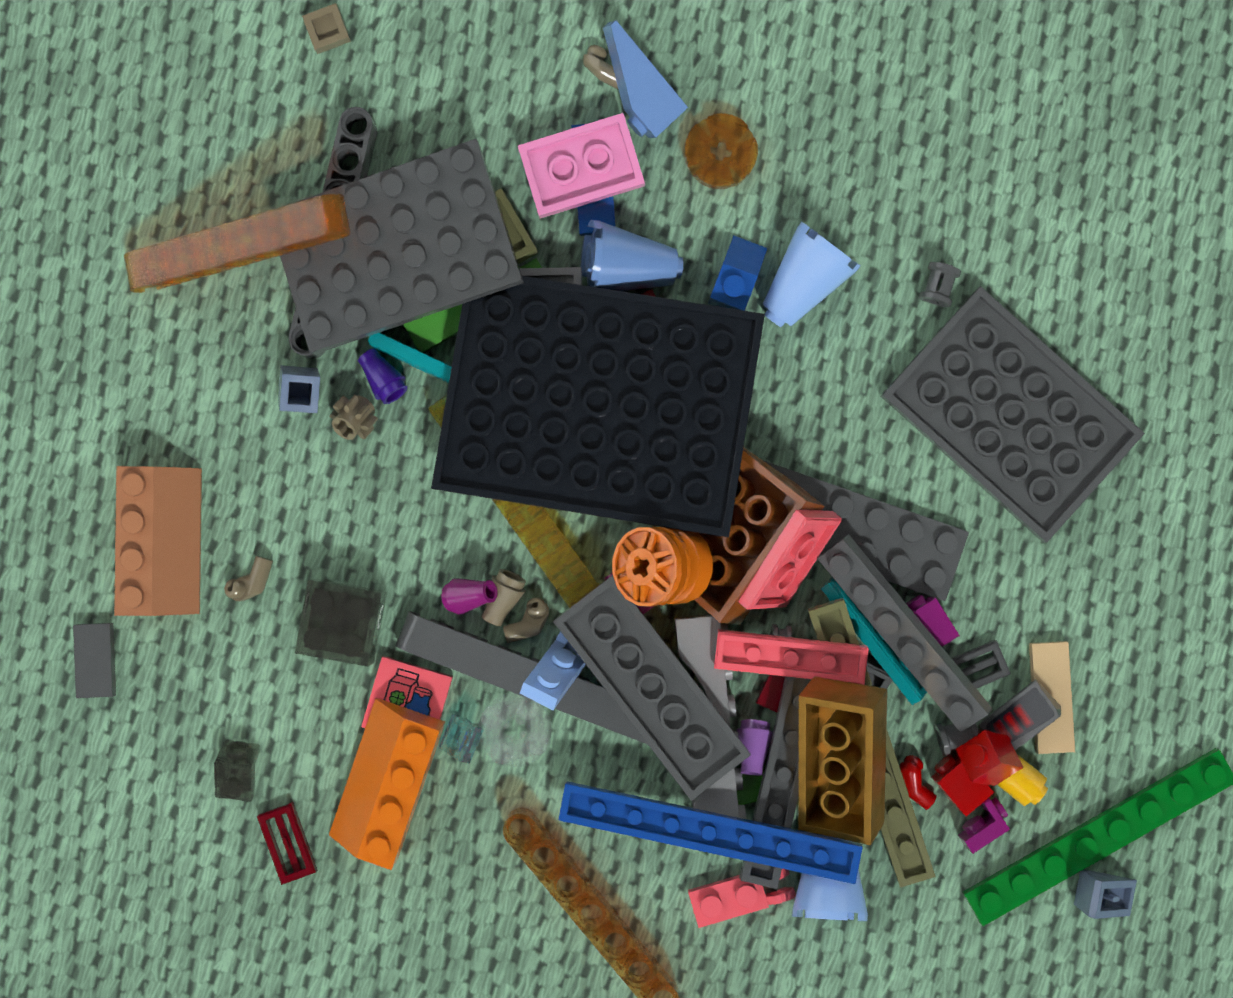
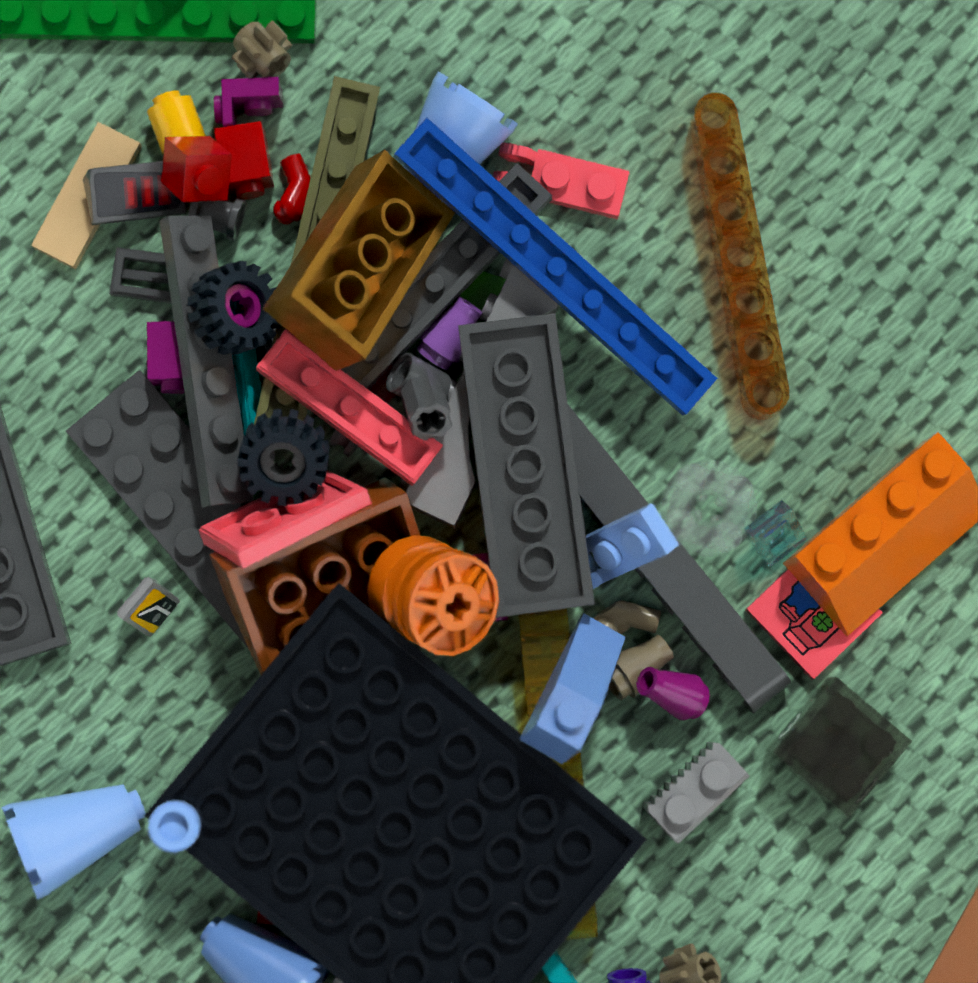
camera: 155 degrees left, 5 degrees down
(250, 584) = (917, 850): dark tan arm -> none
(417, 538) = (695, 791): none -> light grey brick
(533, 557) = (574, 691): none -> medium blue slope
(738, 274) = (146, 883): blue slope -> none
(741, 318) = (174, 826): none -> light blue tile
(746, 694) = (422, 394): none -> dark grey piece
(818, 616) = (283, 432): none -> black bush
(844, 449) = (148, 606): none -> slope
(904, 660) = (212, 302): none -> black bush
(994, 865) = (261, 50): none -> dark tan gear

